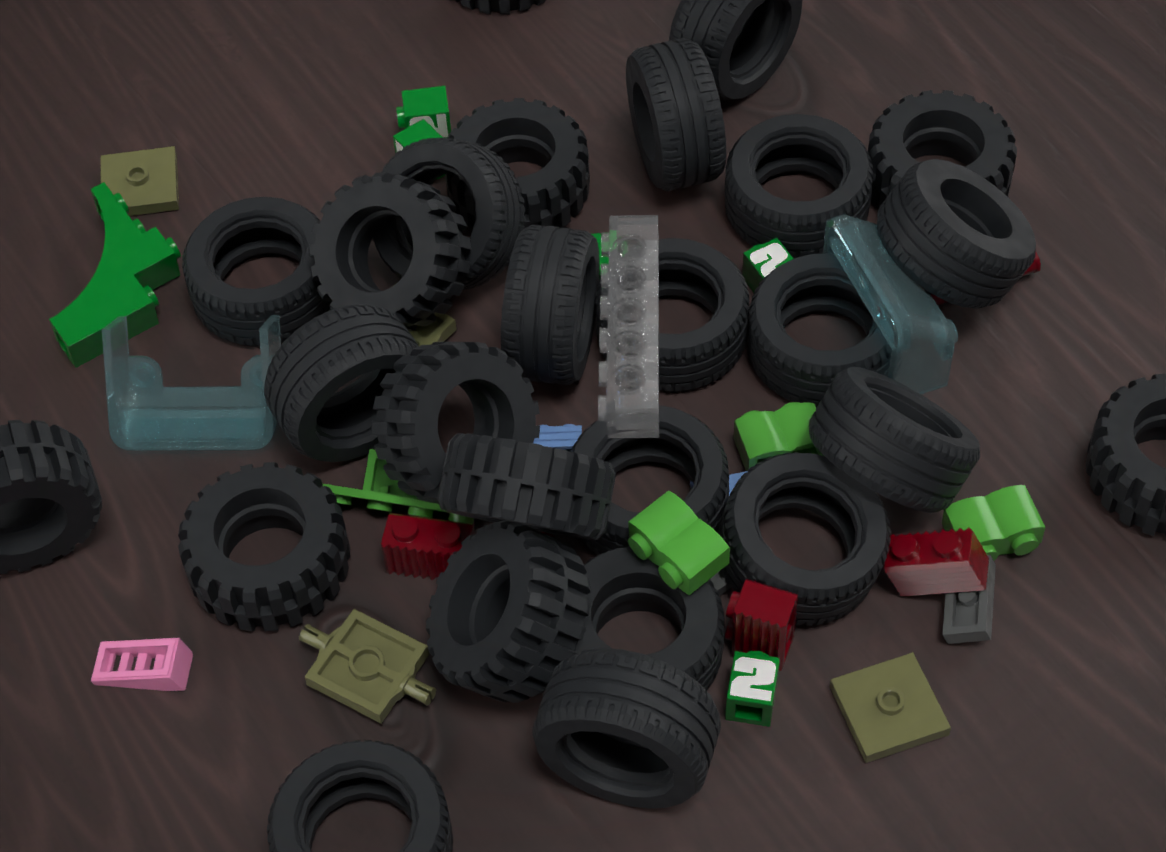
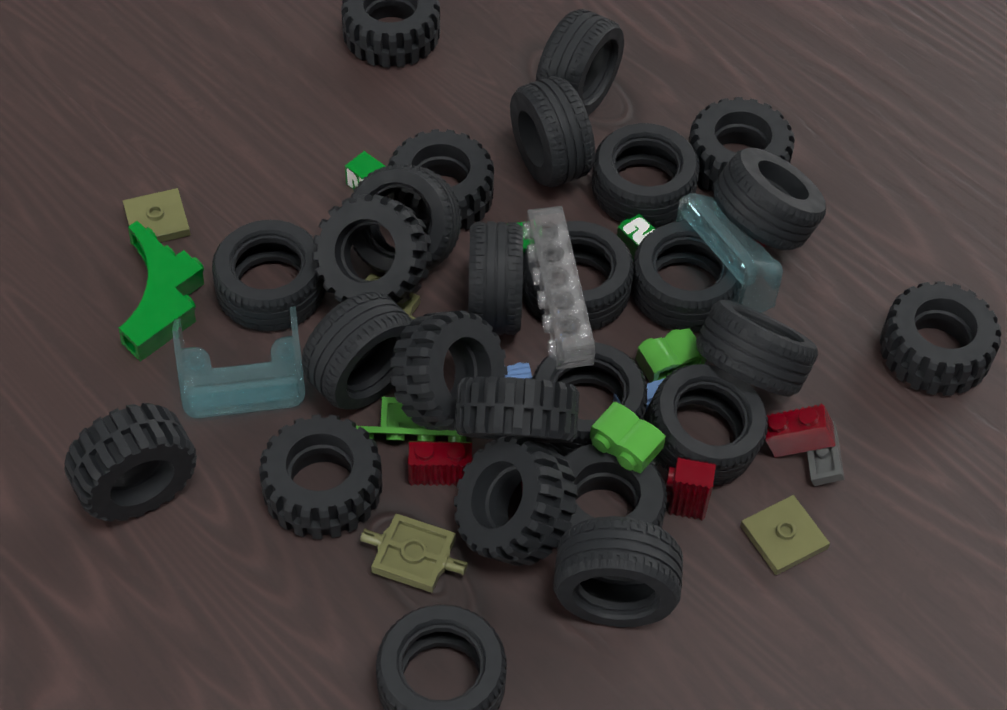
camera: 15 degrees left, 0 degrees up
(169, 670) = (259, 582): bright pink slope -> none
(425, 104) = (361, 140): green brick -> none
(752, 688) = (691, 532): brick -> none
(1001, 521) = (836, 392): bright green brick -> none

